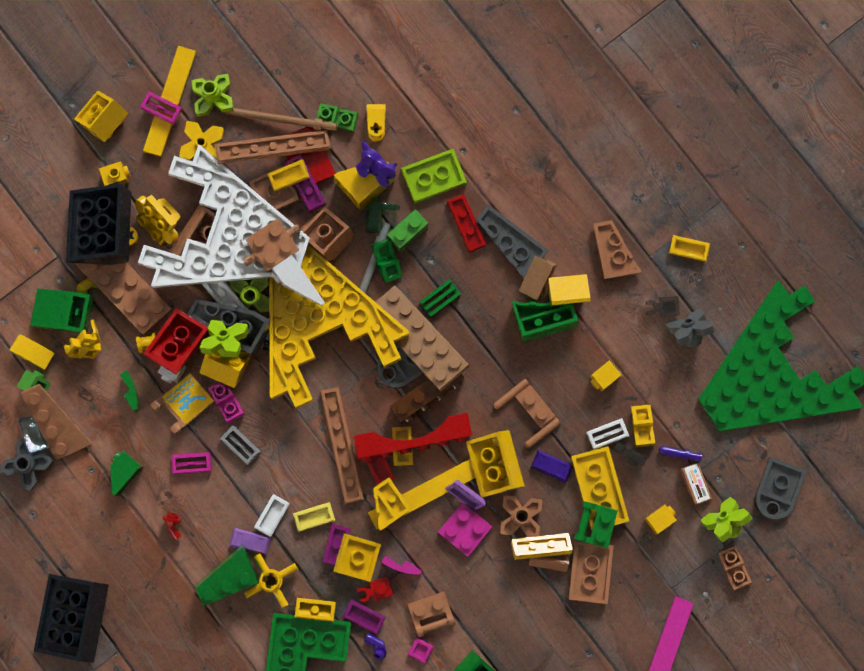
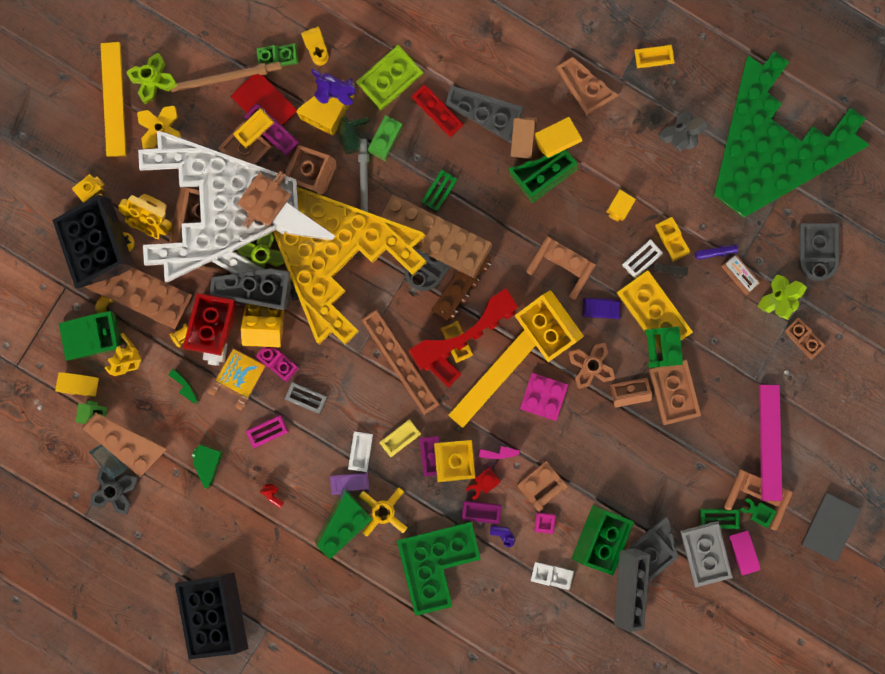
camera: 20 degrees left, 5 degrees up
(101, 116) = (54, 137): yellow slope -> none
(175, 115) = (124, 110): dark pink tile -> none
(224, 339) = (254, 305): lime plant -> none
(272, 147) = (227, 106): nougat tile -> none
(315, 609) = (434, 523): yellow slope -> none
(386, 261) = (376, 174): green slope -> none
(389, 503) = (465, 400): yellow wing -> none
(466, 495) = (533, 365): medium lavender tile -> none
(541, 546) = (621, 386): plate -> none
(661, 518) = (721, 319): yellow brick -> none

